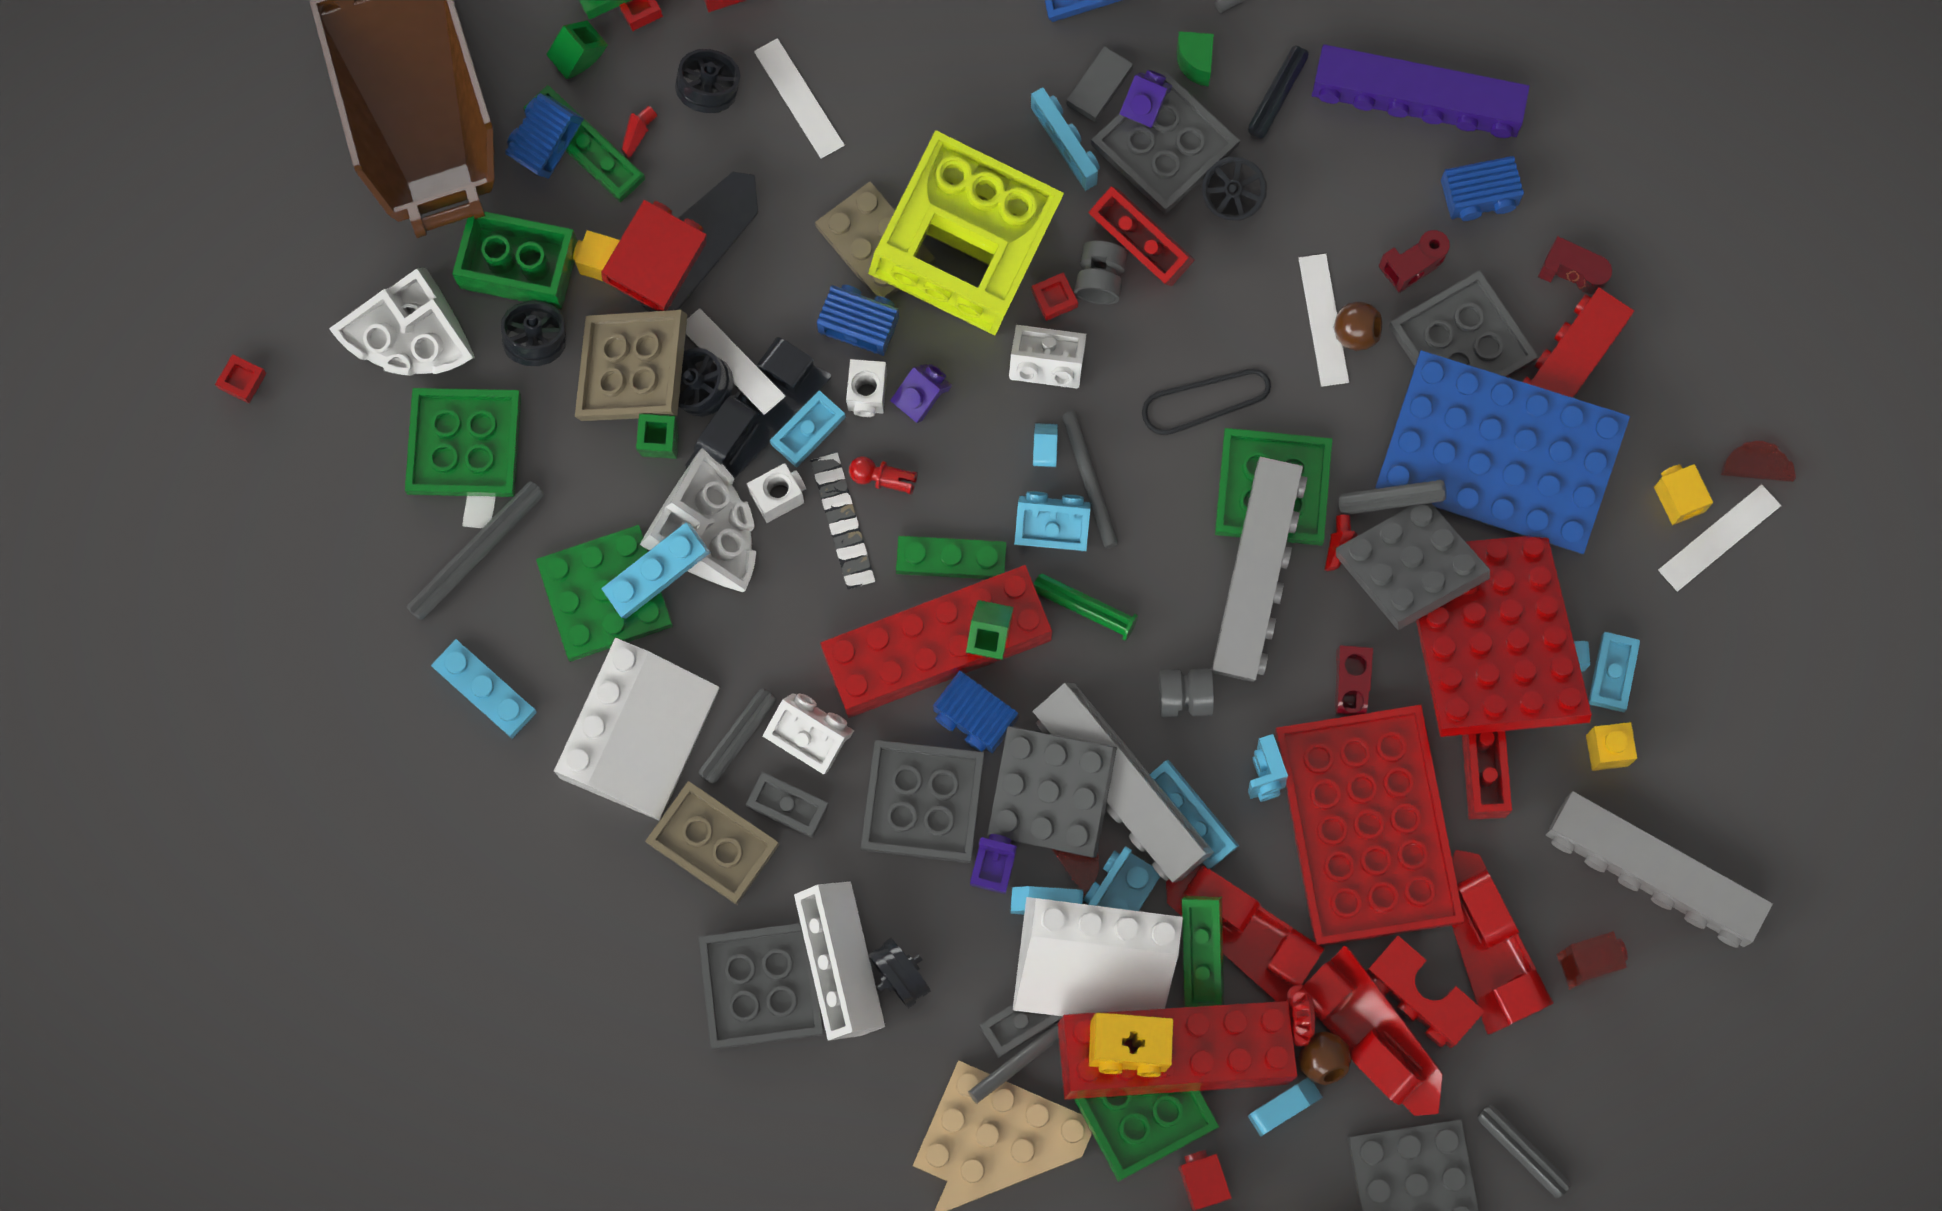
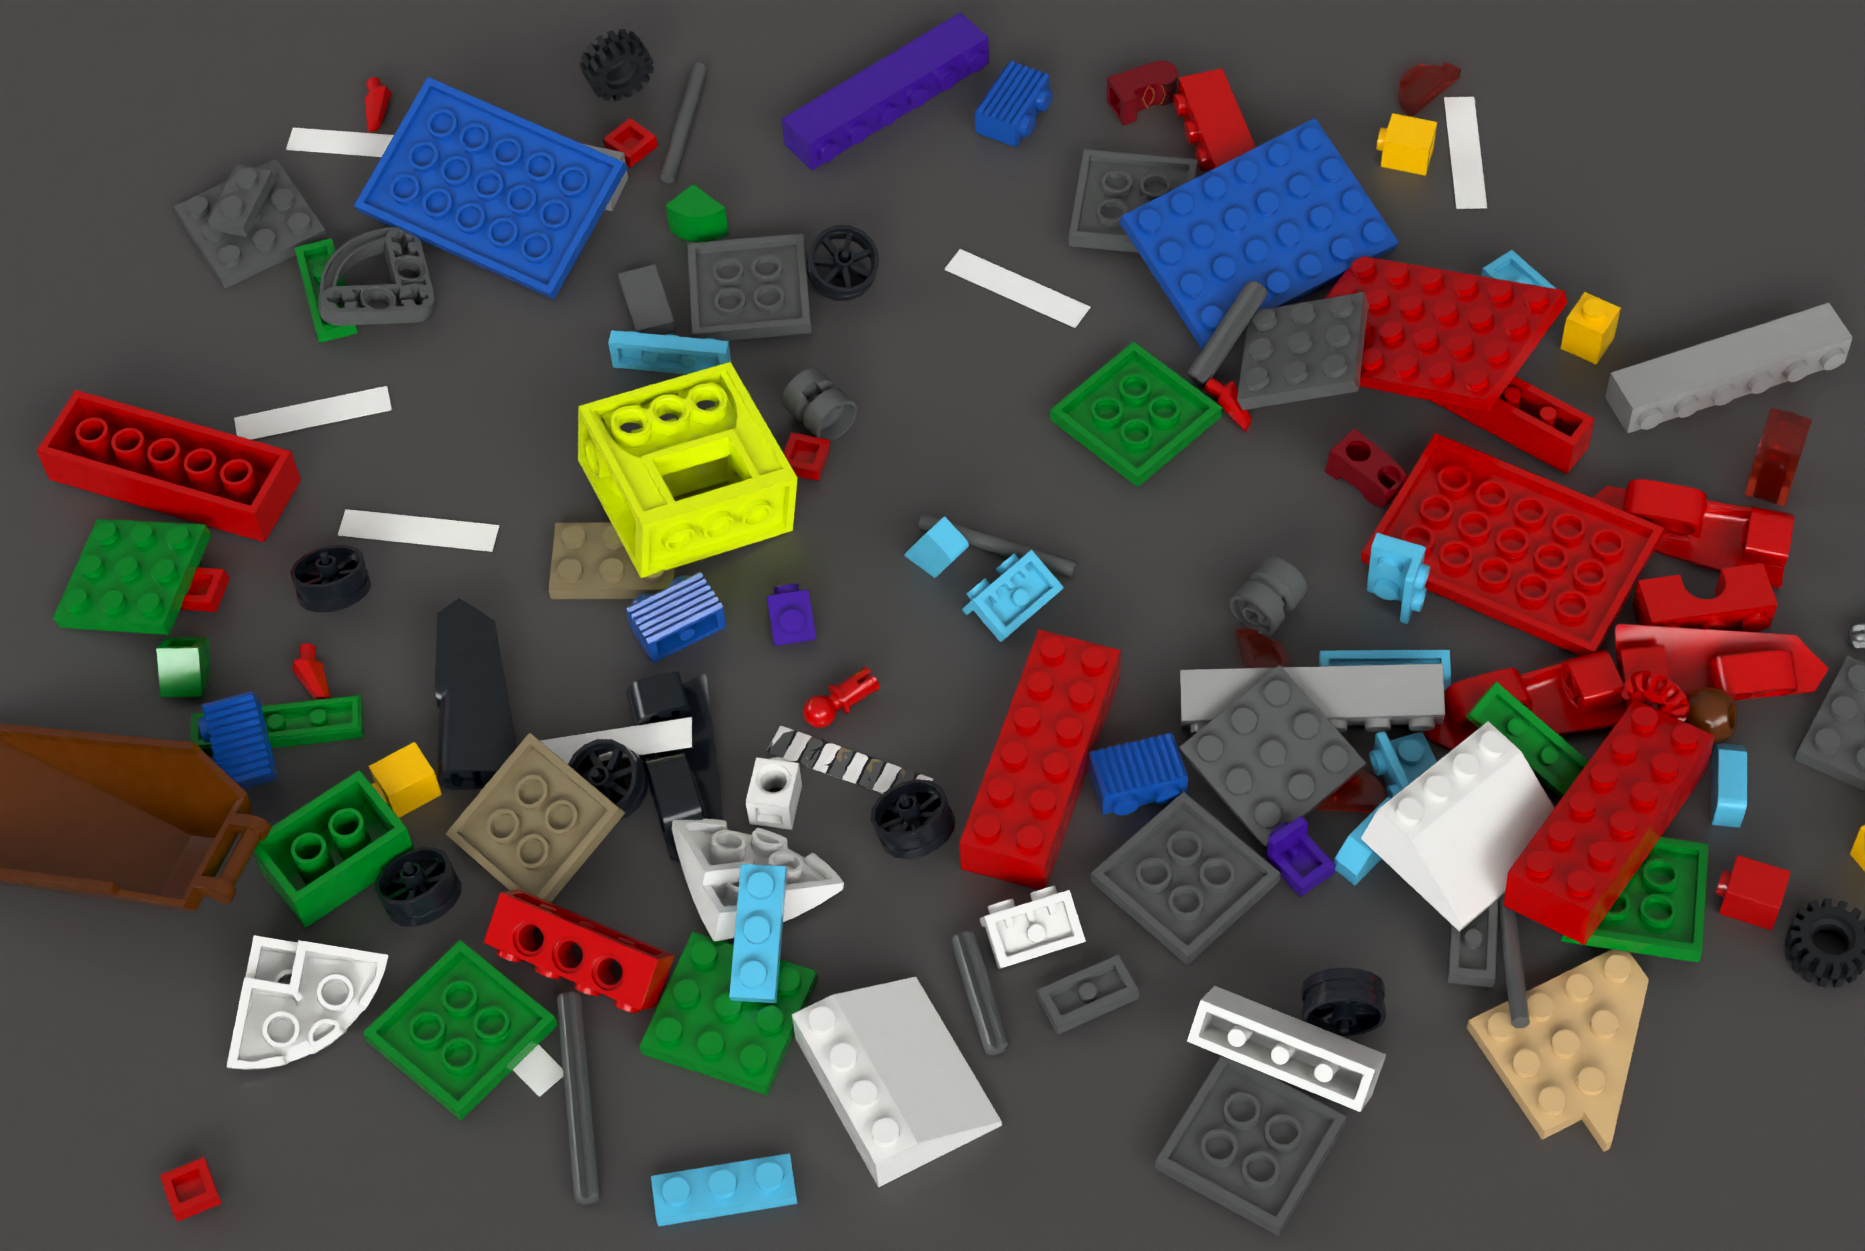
camera: 50 degrees left, 20 degrees down
(566, 468) = (642, 964): none -> red brick
(654, 255) = (455, 721): red brick -> none
(657, 436) = (625, 850): green brick -> none
(712, 843) = (1068, 1086): dark tan plate -> none
(807, 429) = (737, 727): medium azure plate -> none
(823, 614) = (910, 812): none -> black wheel
(862, 373) = (744, 637): white brick -> none
(950, 557) = (968, 700): green plate -> none
(989, 629) = (1080, 686): green brick -> none
(1047, 356) = (855, 498): white bracket -> none
(1085, 605) = (1124, 618): green axle -> none
(1140, 724) = (1260, 651): none -> clear red tile
(1141, 236) = (832, 348): red brick -> none
(1145, 97) = (700, 265): dark purple bracket -> none
(1150, 1034) = (1585, 824): yellow brick -> none
(1210, 416) = (1014, 365): black piece -> none
(1257, 570) = (1205, 464): light grey brick -> none
(1278, 91) = (786, 186): black axle -> none
(1358, 326) = (1050, 259): reddish brown piece -> none
(1415, 262) = (1029, 198): dark red leg -> none

